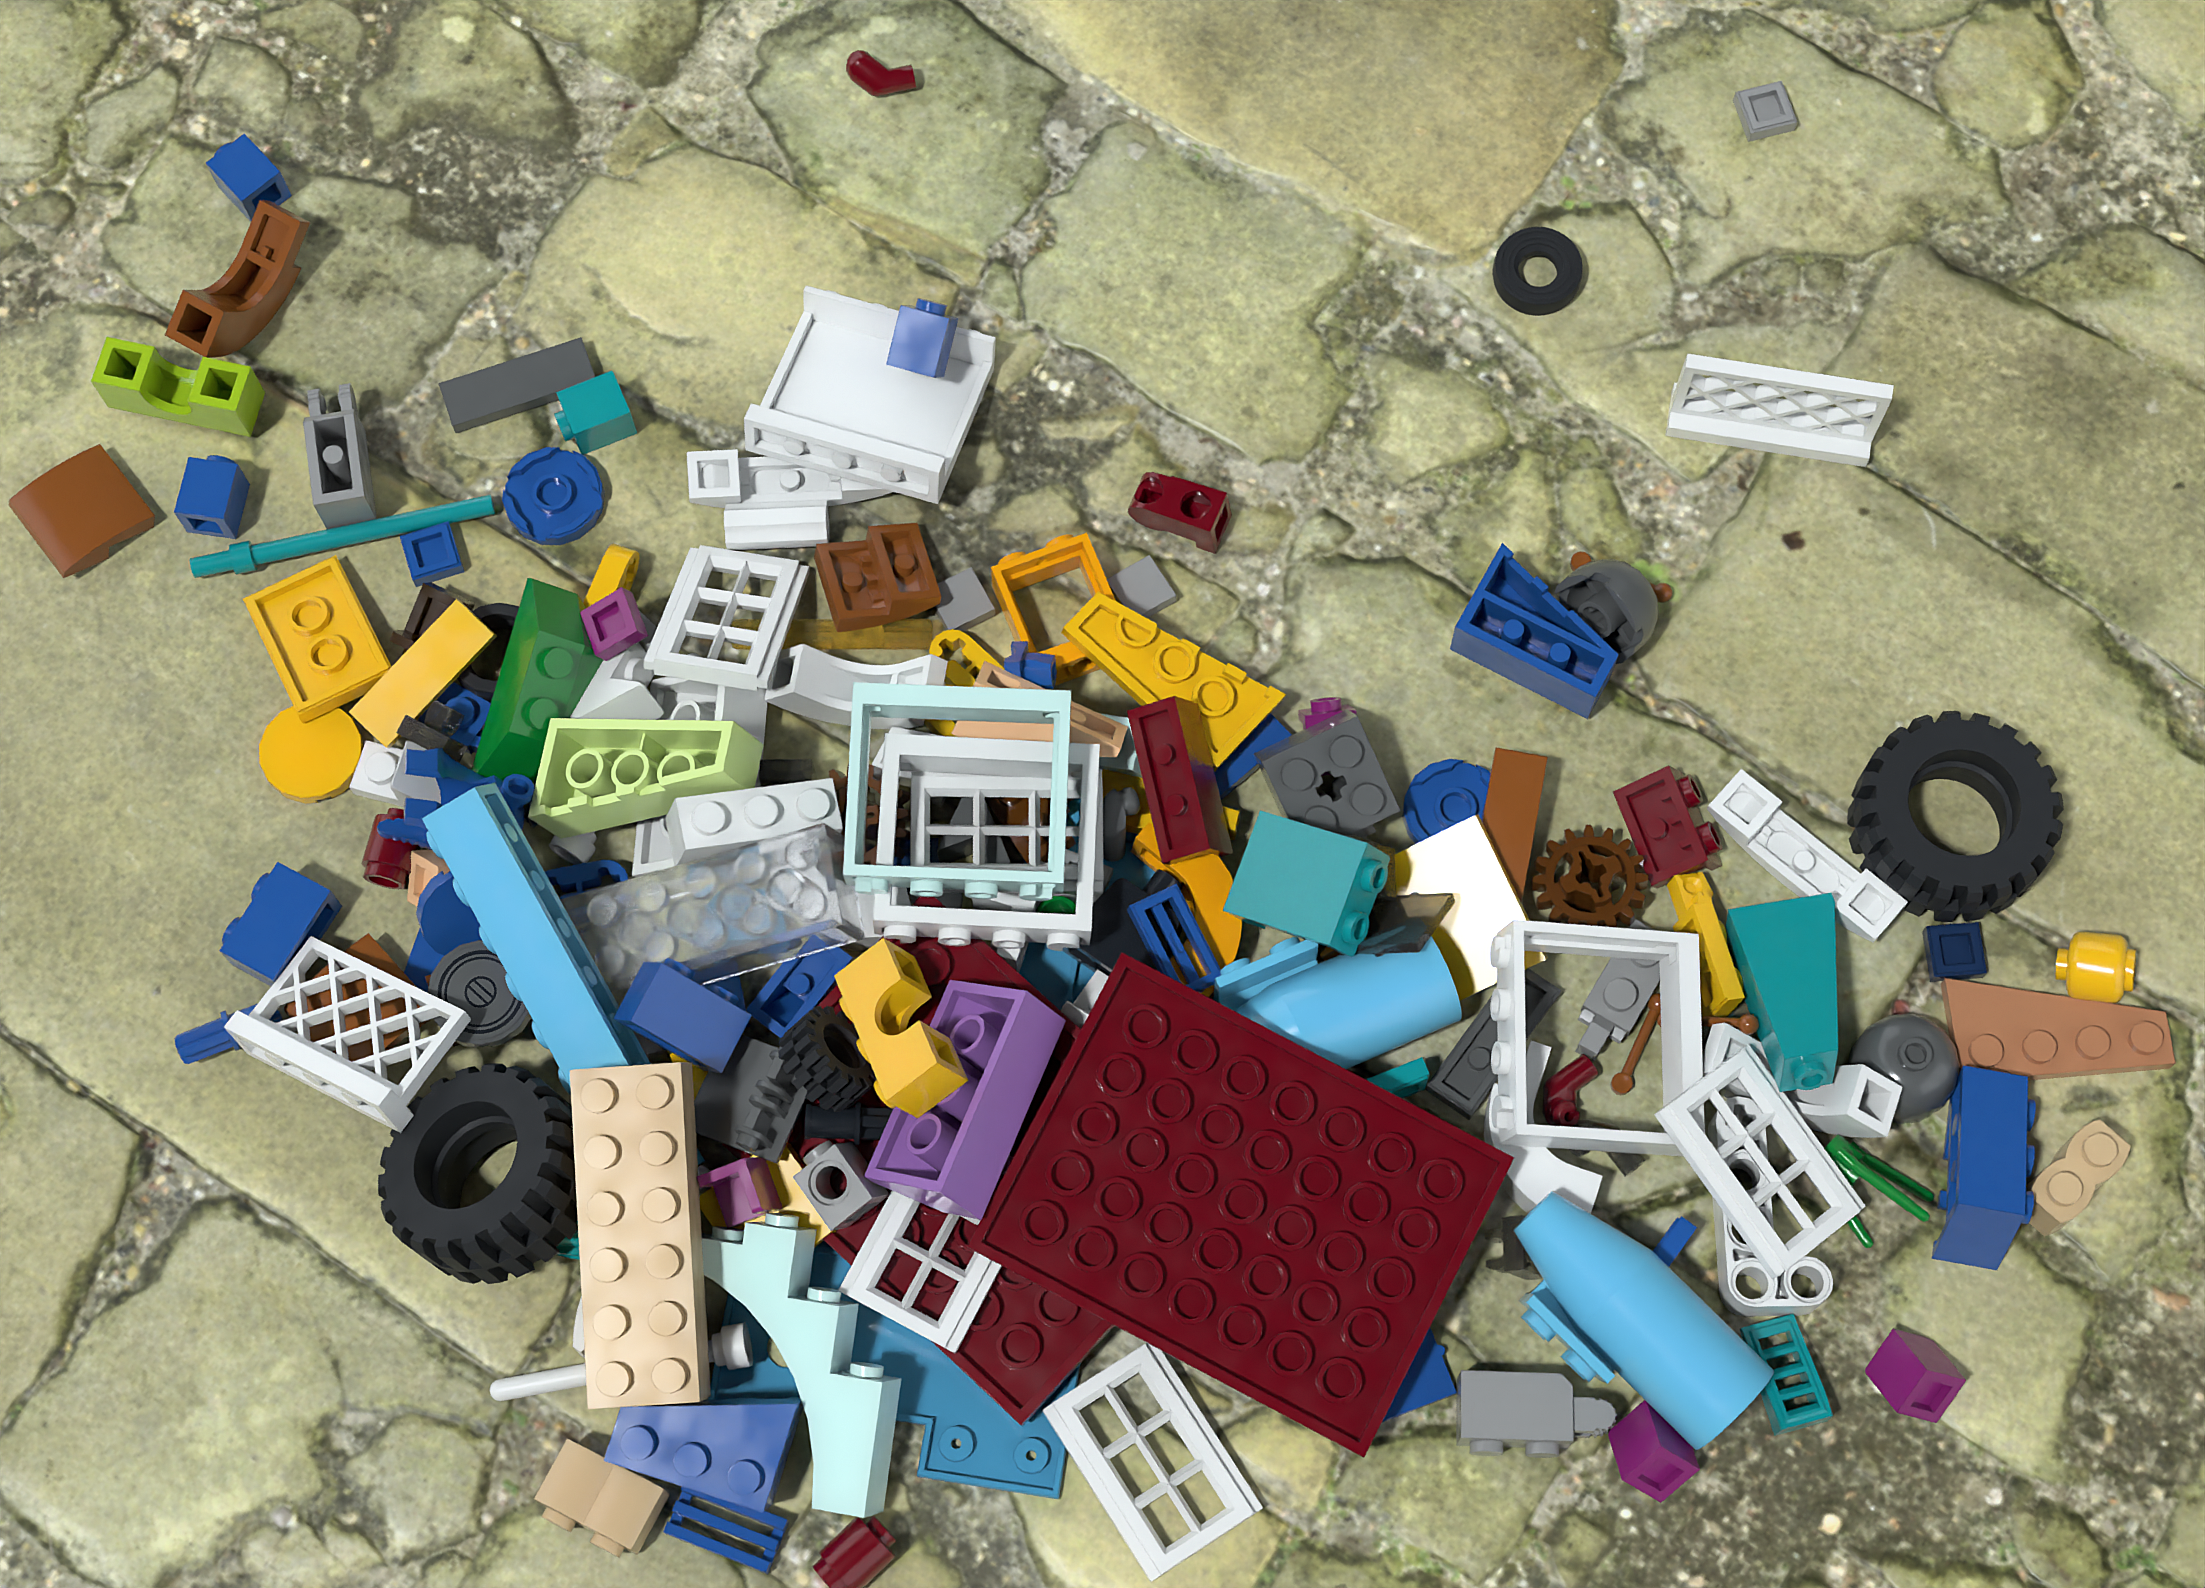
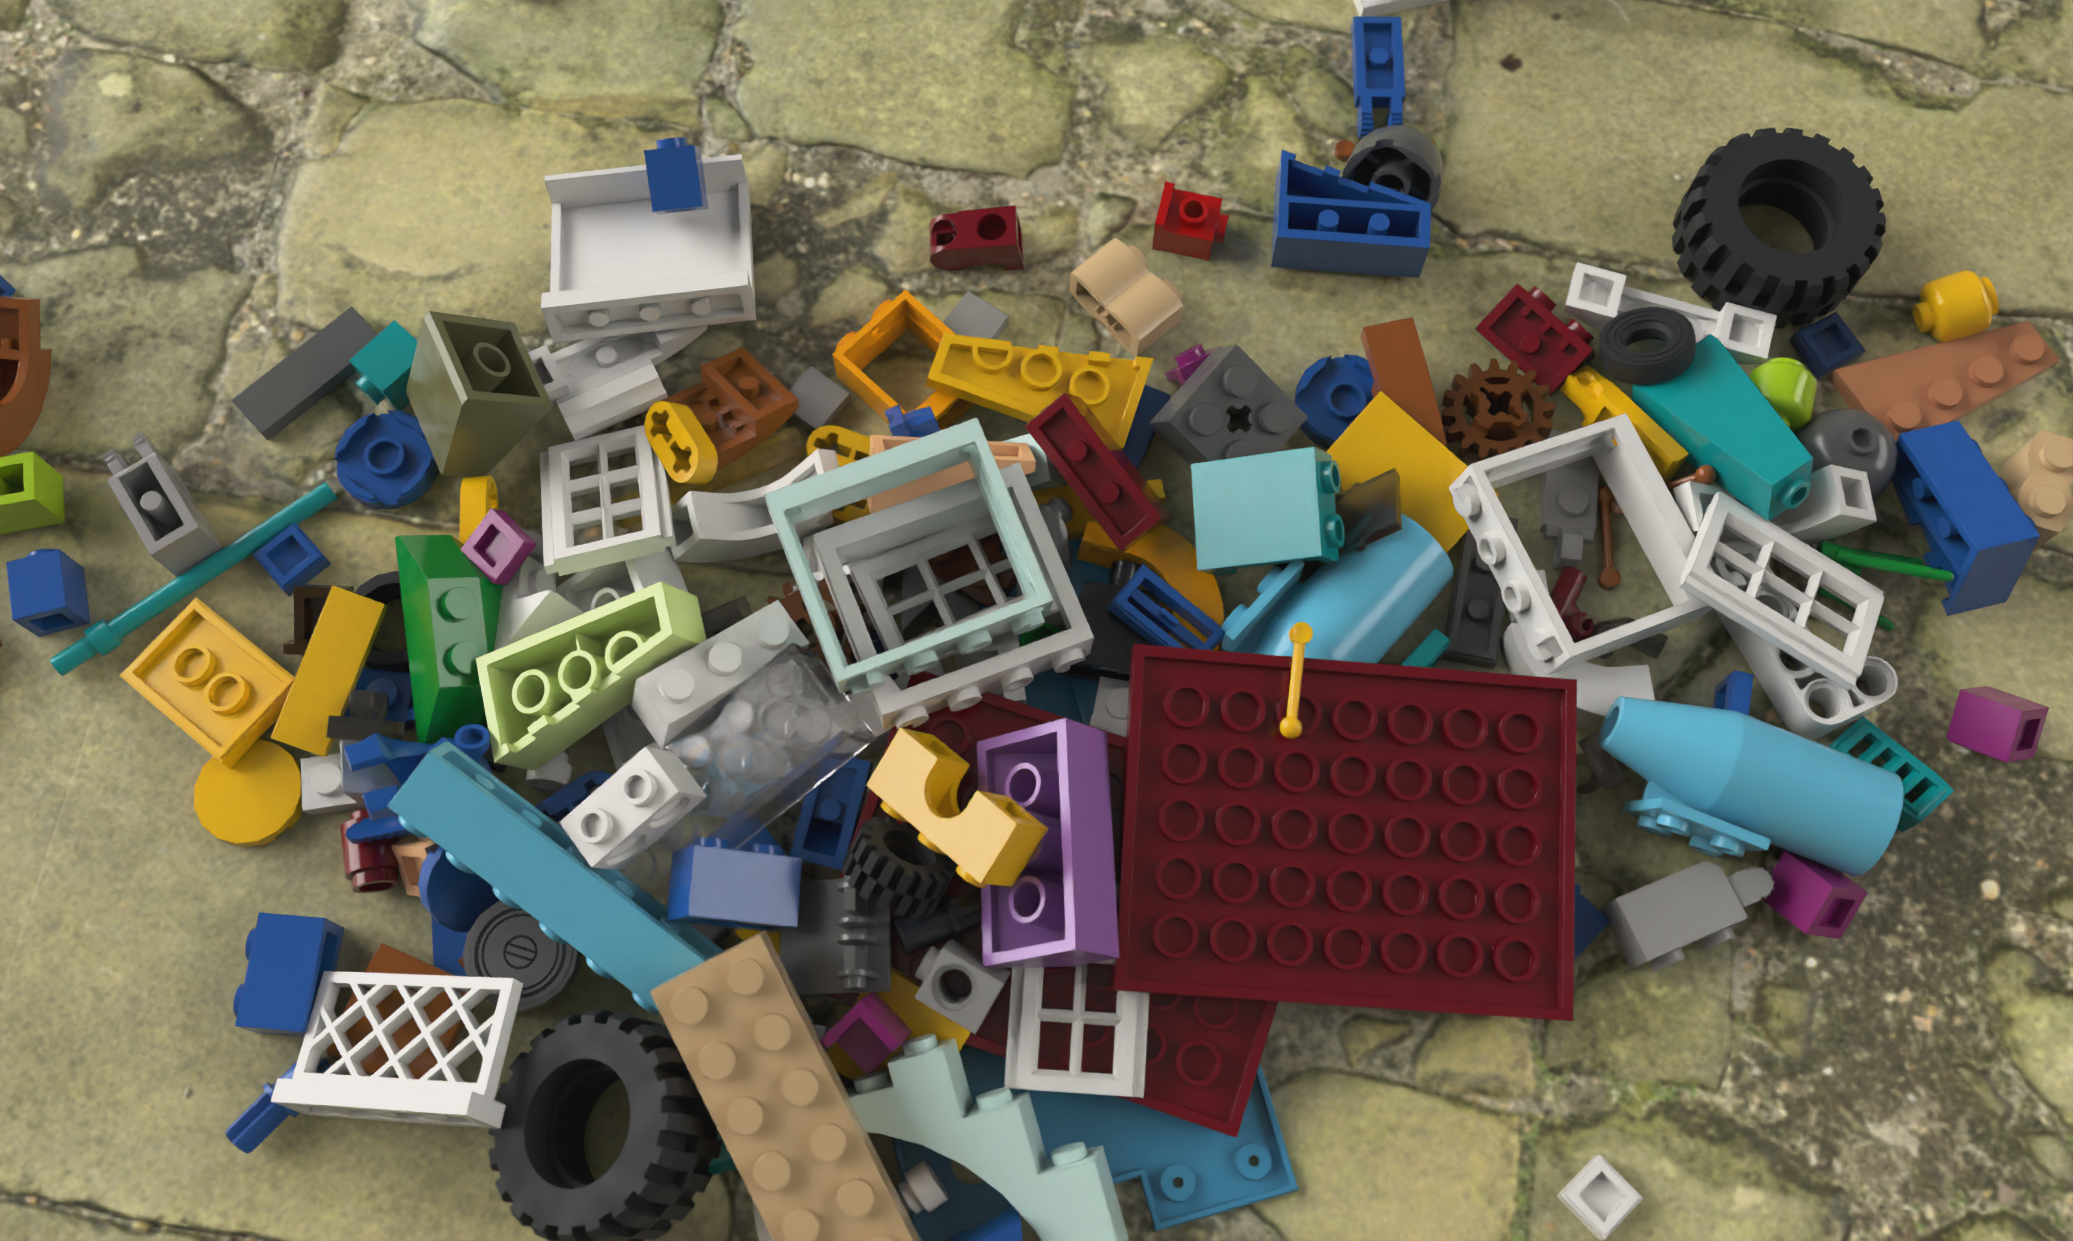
camera: 25 degrees left, 0 degrees up
(625, 909) = (632, 809): none -> white brick
(653, 470) = (473, 391): none -> olive slope
(817, 594) = (686, 437): none -> yellow beam
(1110, 1488) = (1341, 1156): white piece -> none
(1275, 1009) = (1299, 635): none -> yellow hinge
(1294, 622) = (1126, 296): none -> tan brick
(1389, 591) = (1188, 223): none -> red brick
(1650, 497) = (1377, 69): none -> blue hinge
(1758, 901) = (1653, 366): none -> black tyre
(1871, 981) = (1788, 390): none -> lime head

